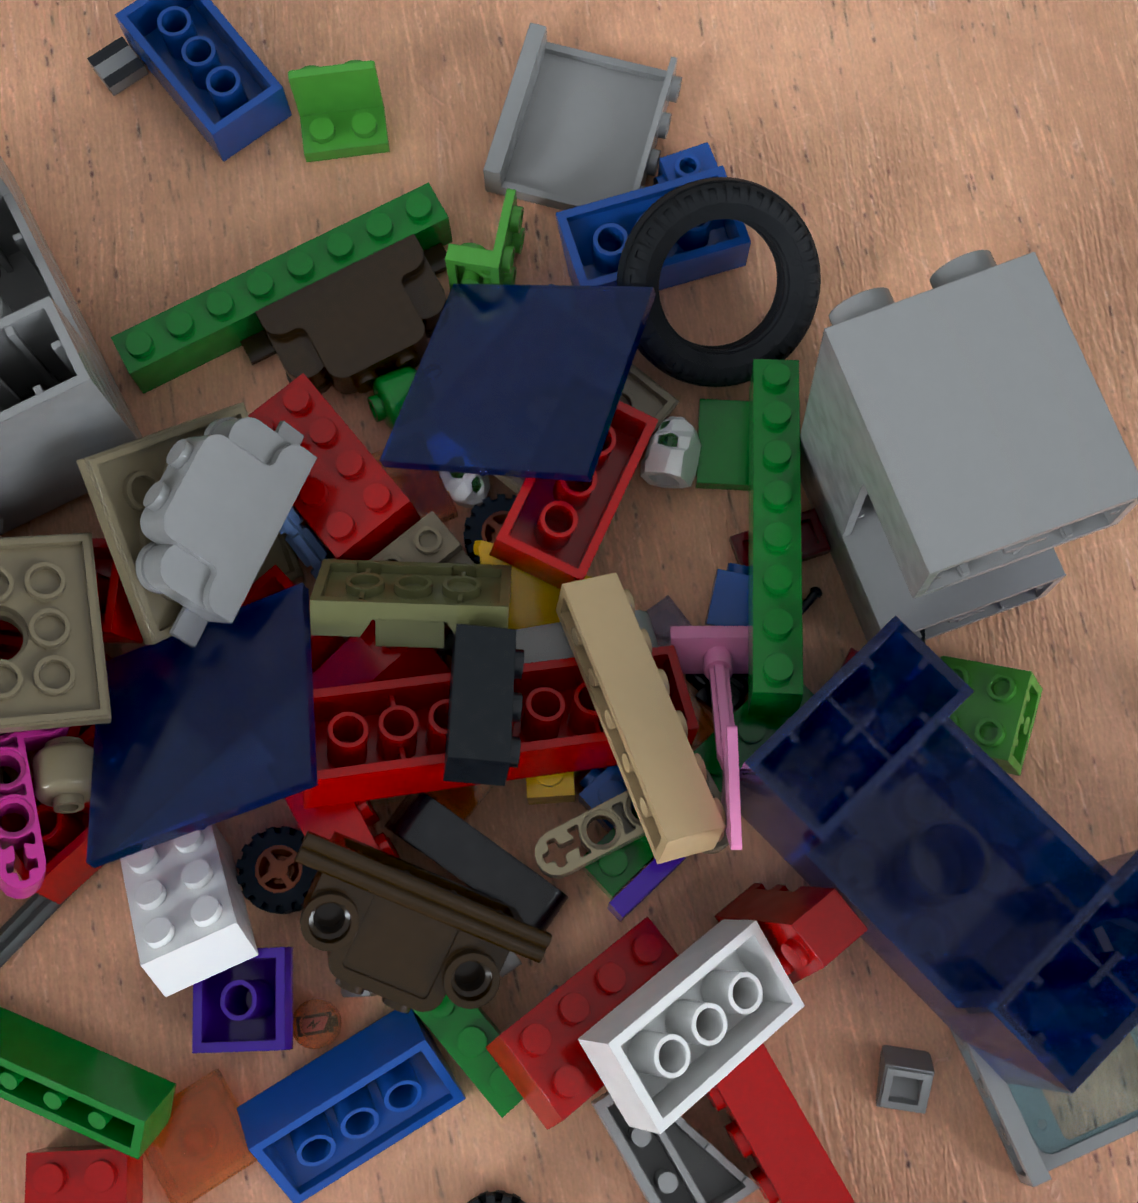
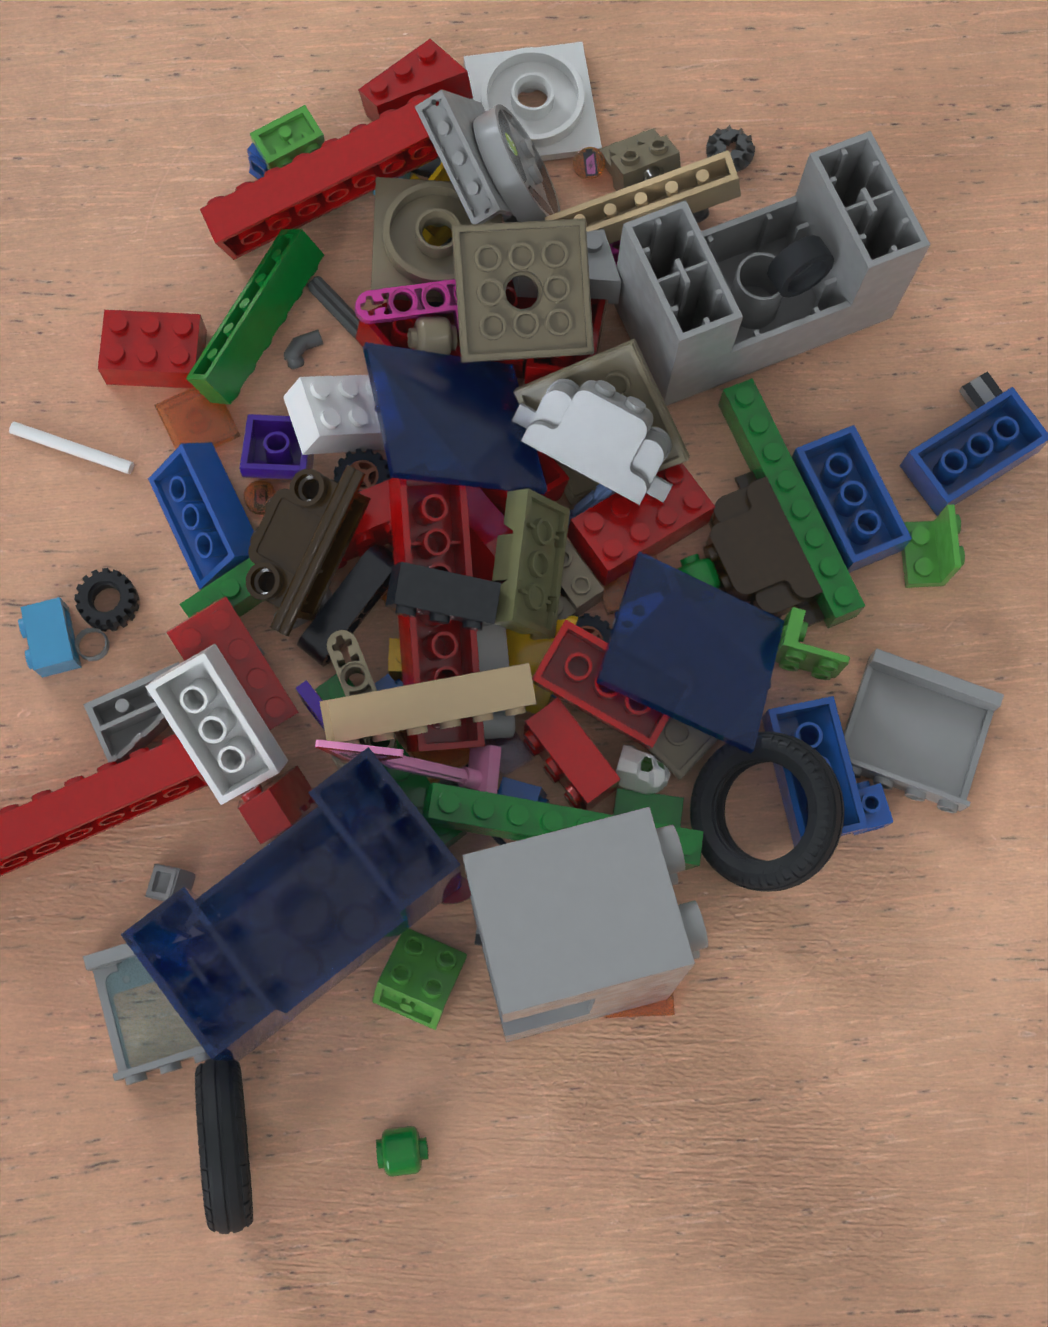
camera: 90 degrees right, 0 degrees up
(71, 995) = (299, 345): none -> dark grey arm
(276, 205) = (851, 498): none -> blue brick
(671, 535) = (569, 756): none -> red brick

